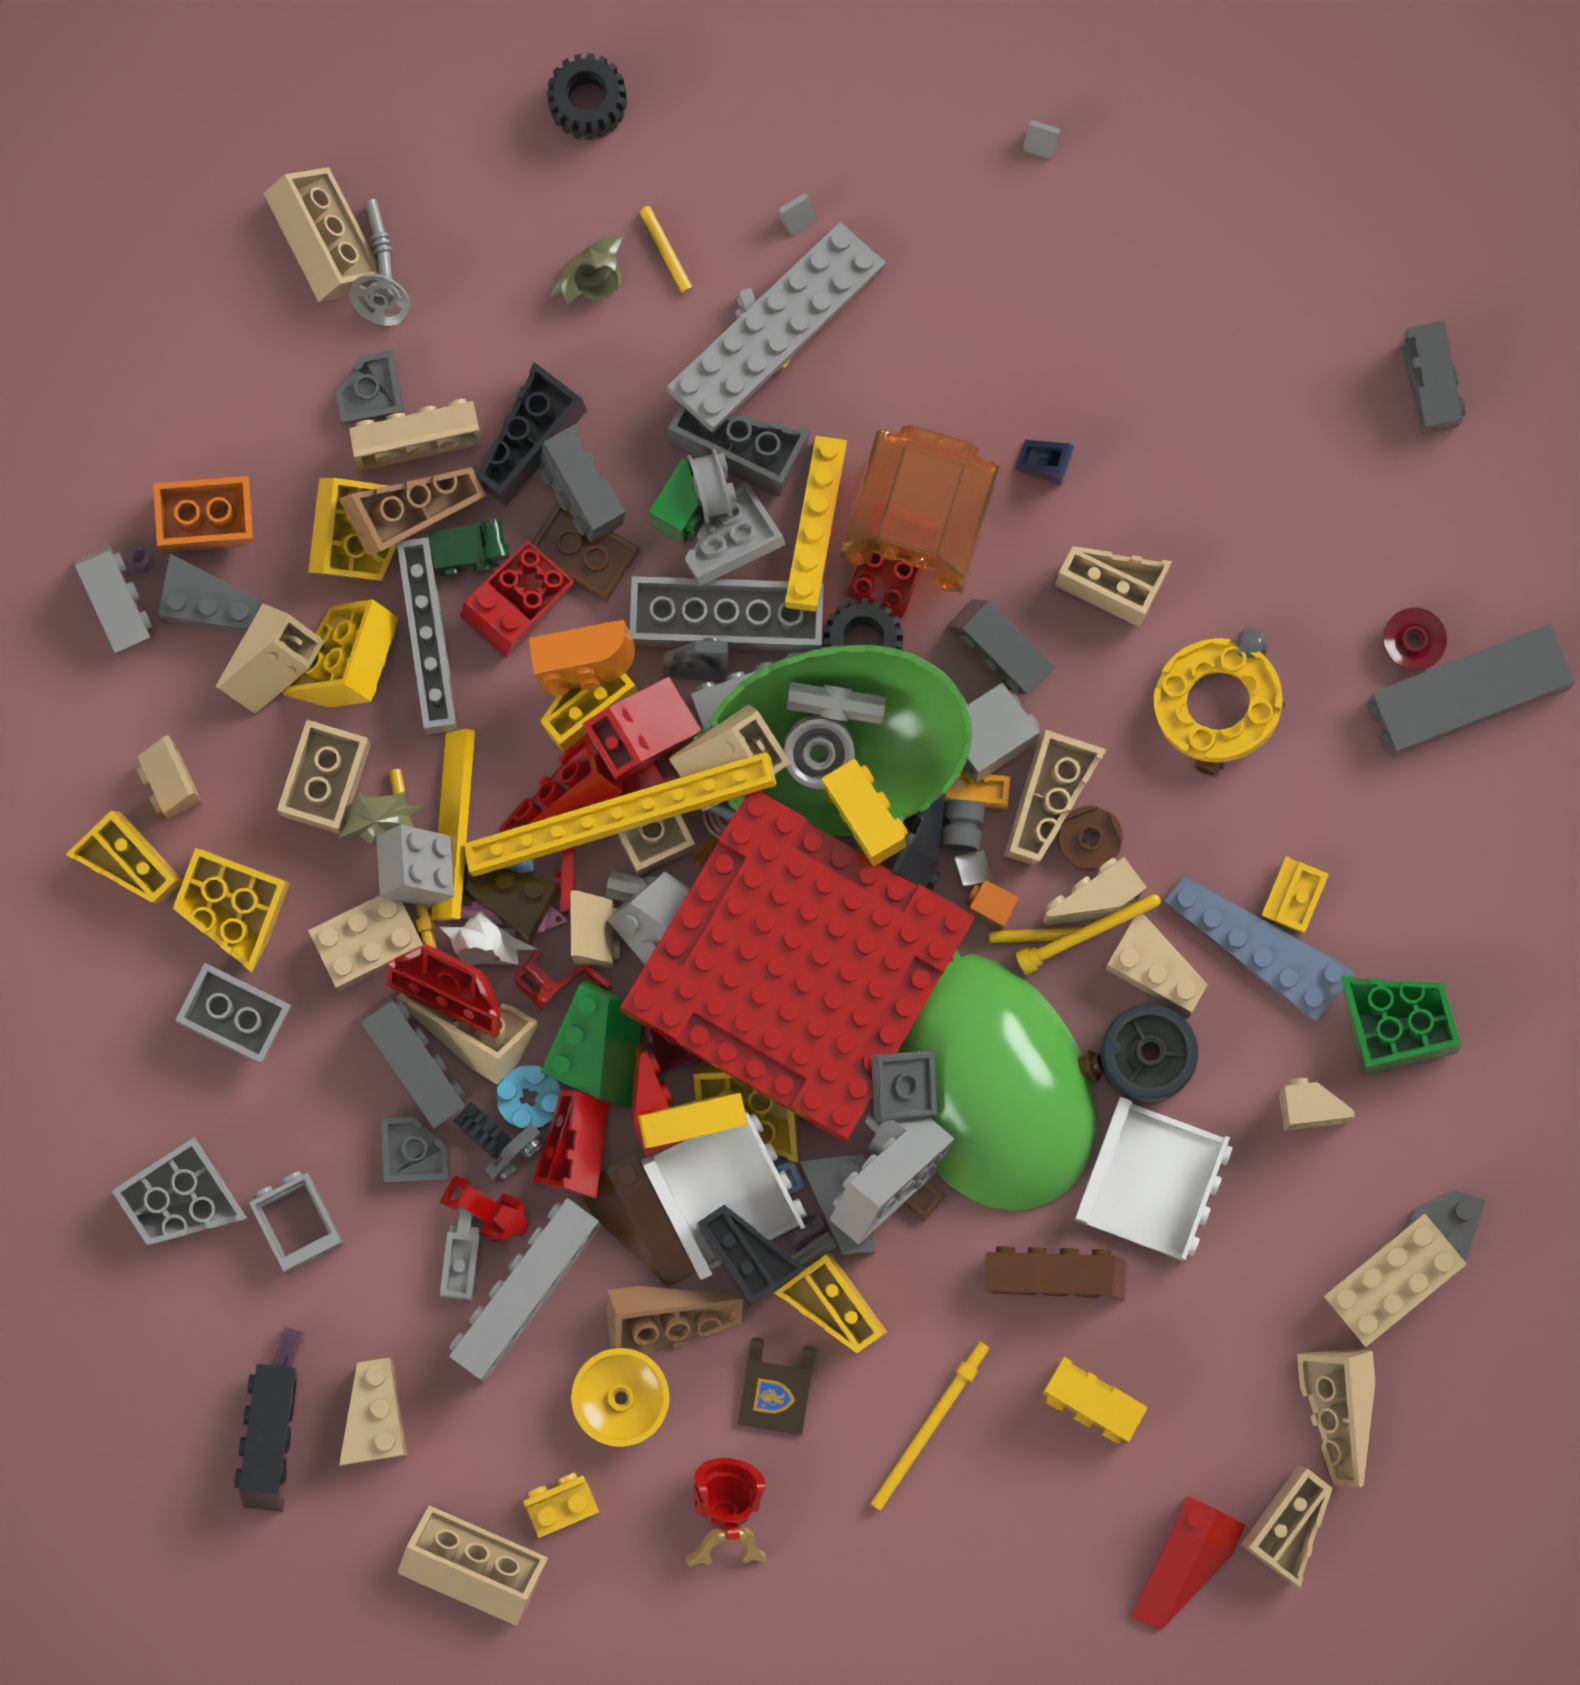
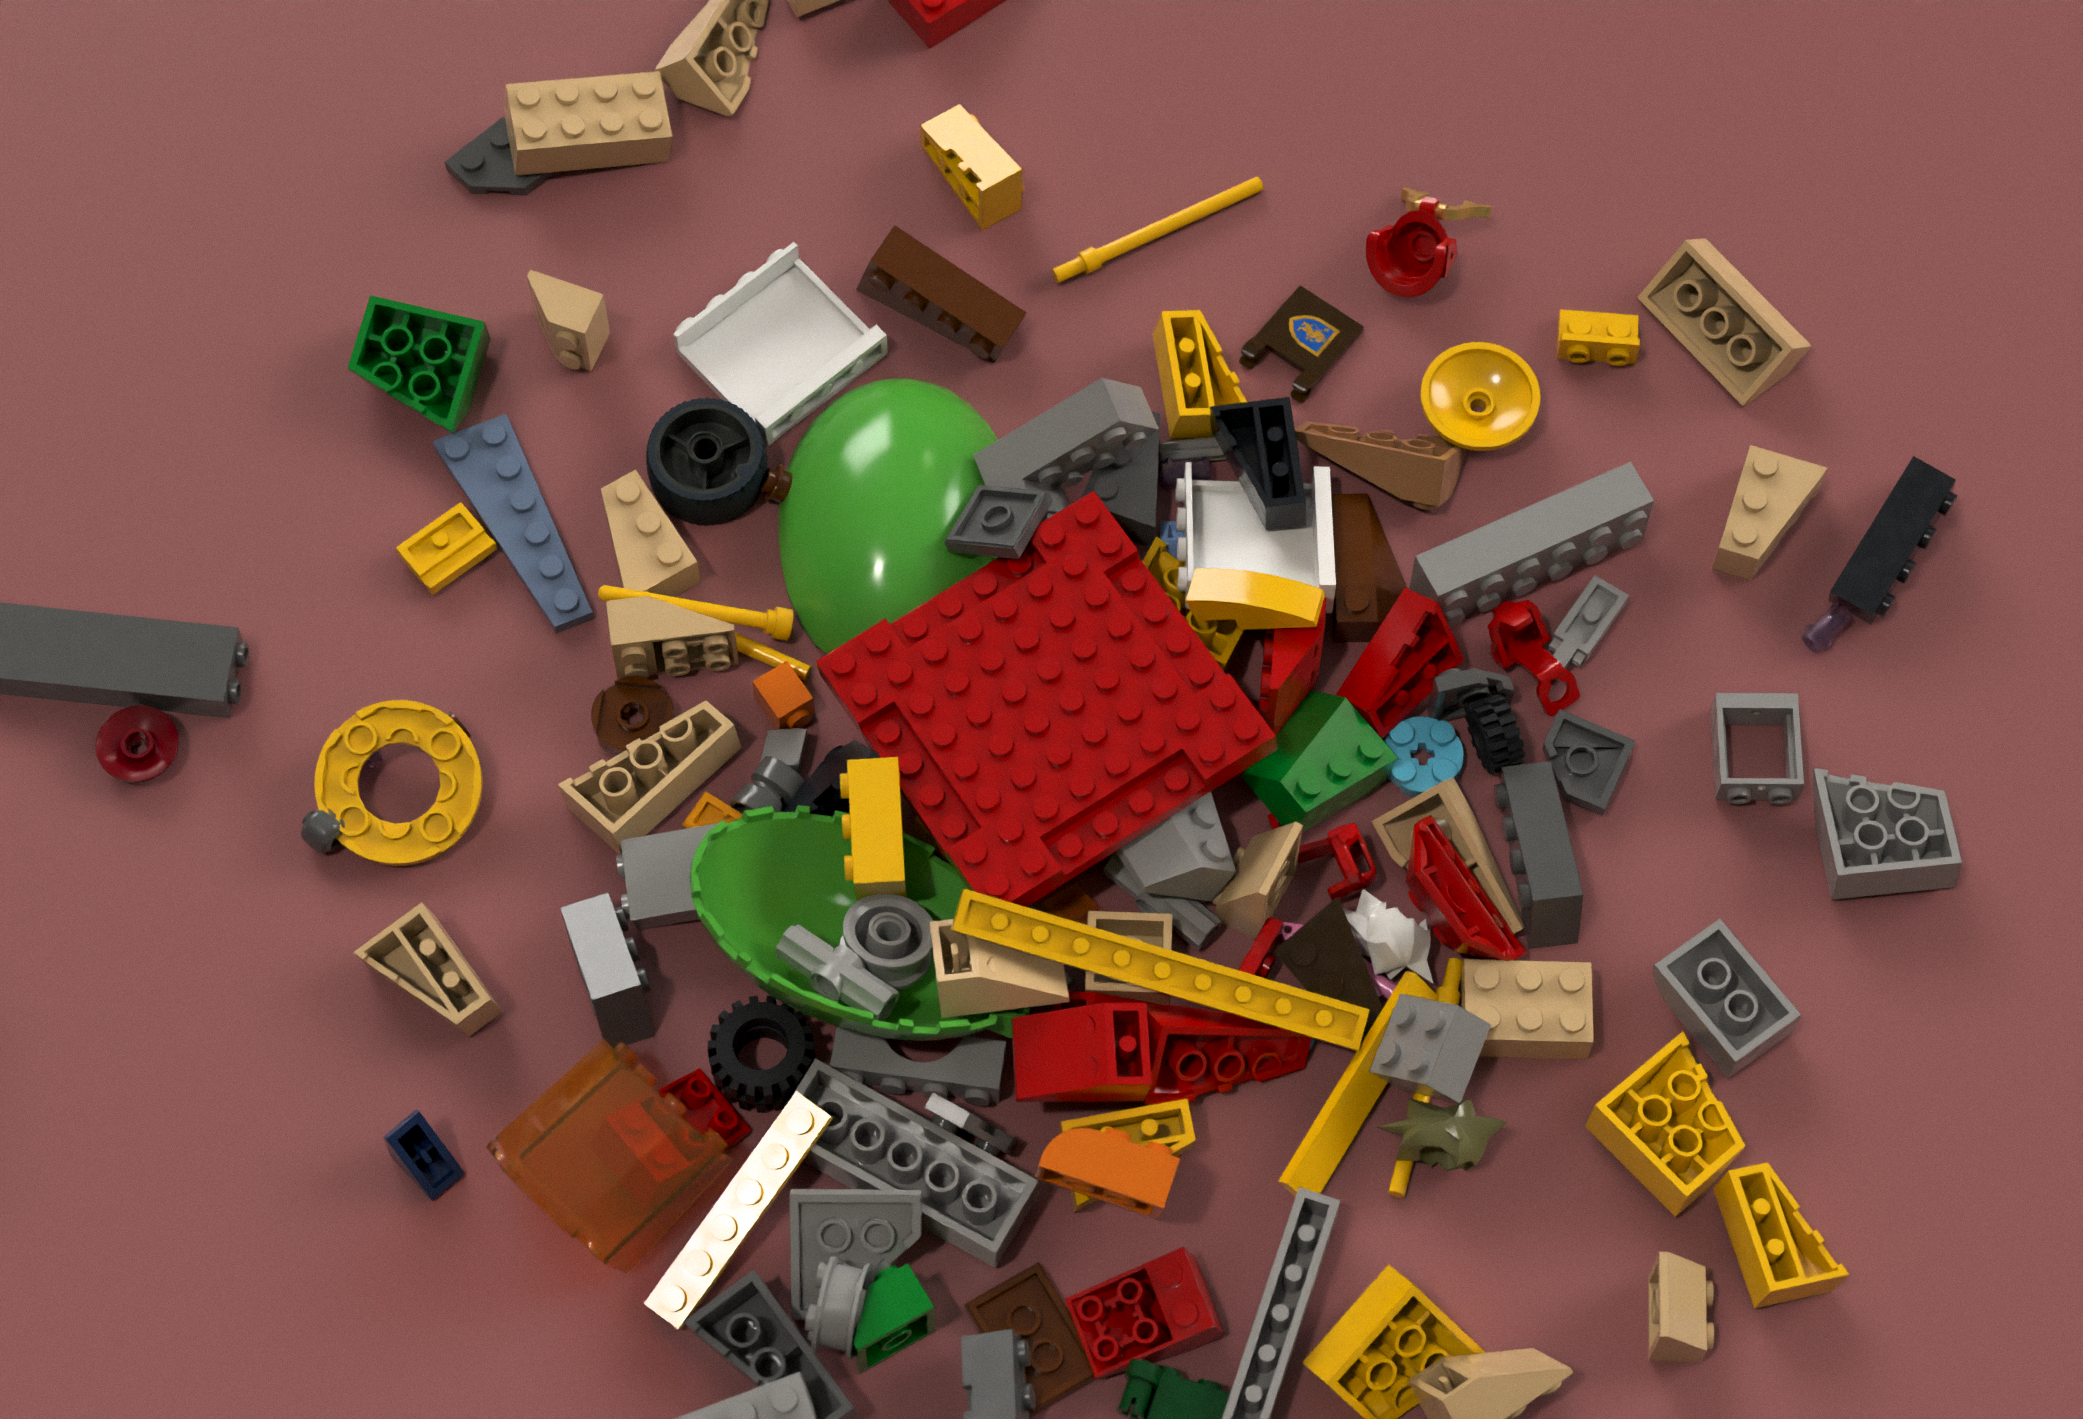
camera: 155 degrees left, 15 degrees down
(323, 776) = (1487, 1216): tan brick -> none

